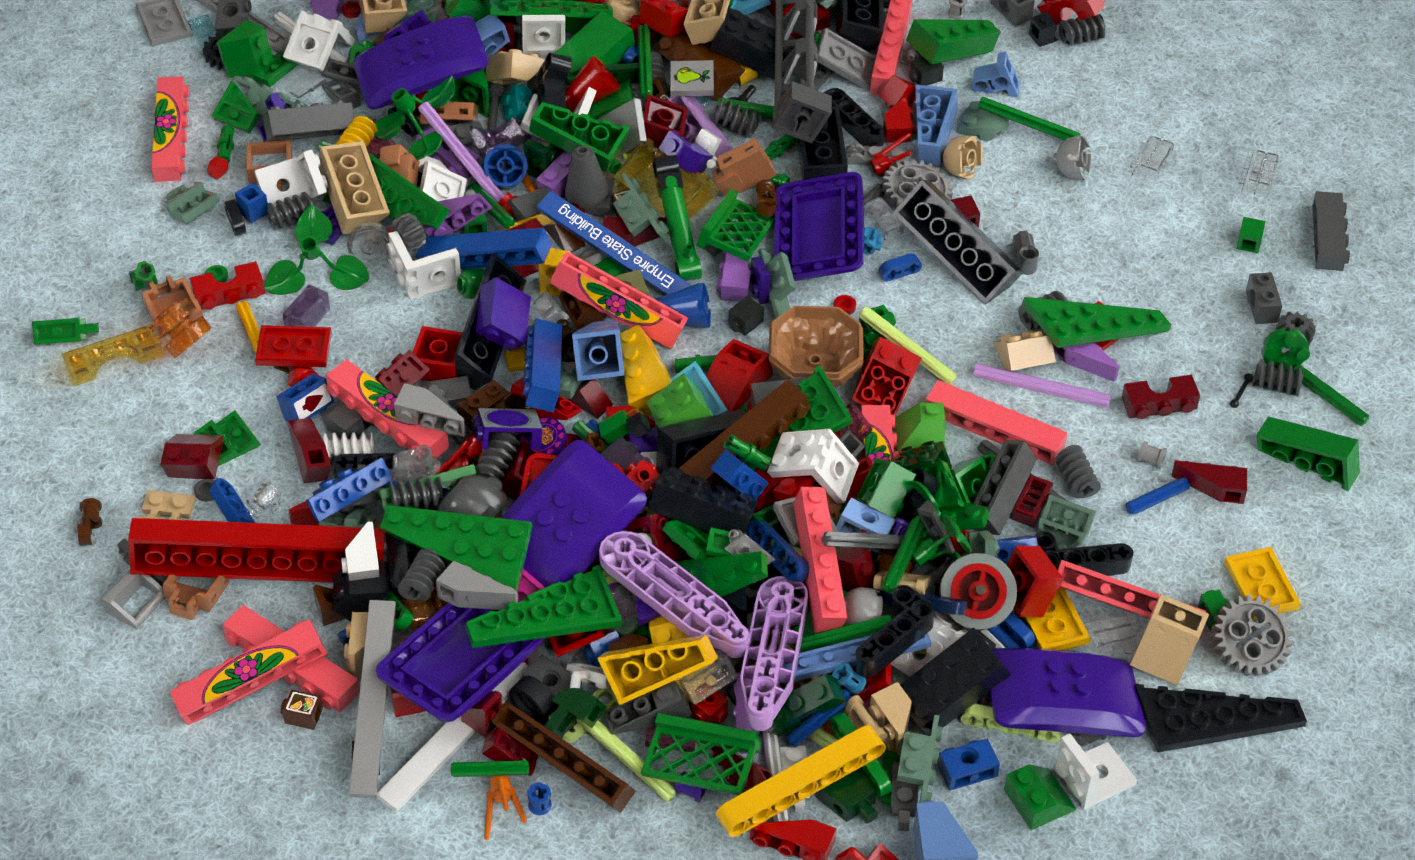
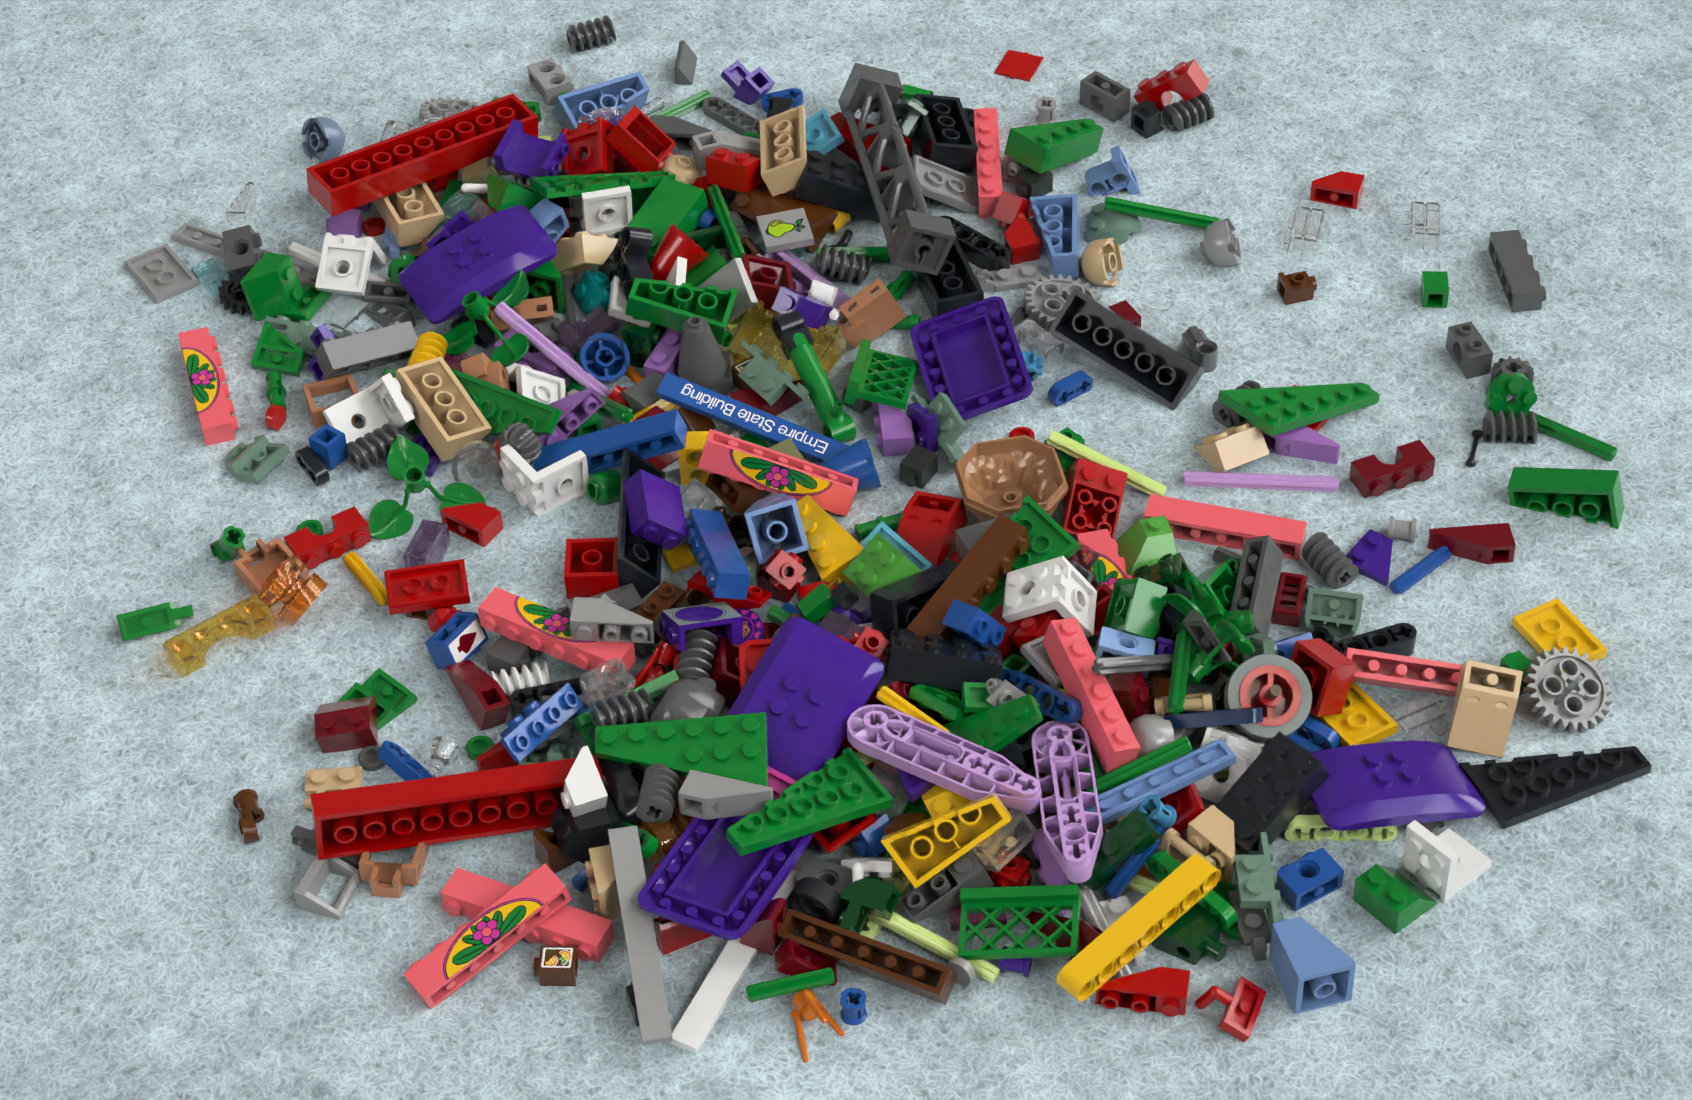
camera: 10 degrees left, 5 degrees down
(297, 496) = (477, 746): none -> green tile
(353, 293) = (473, 522): none -> red slope
(404, 369) = (560, 590): dark red bracket -> none
(593, 382) = (775, 567): none -> brick
(641, 785) = (963, 970): none -> light grey tile
(652, 536) = (896, 702): none -> yellow axle
(747, 452) = (977, 598): green pin -> none
(766, 203) = (905, 347): reddish brown connector -> none
(882, 163) = (1016, 285): red plant -> none
(912, 622) = (1210, 739): black beam -> none
(1118, 474) = (1373, 556): none -> dark purple wing
(1128, 210) = (1296, 287): none -> reddish brown brick
(1194, 125) = (1338, 189): none -> red slope

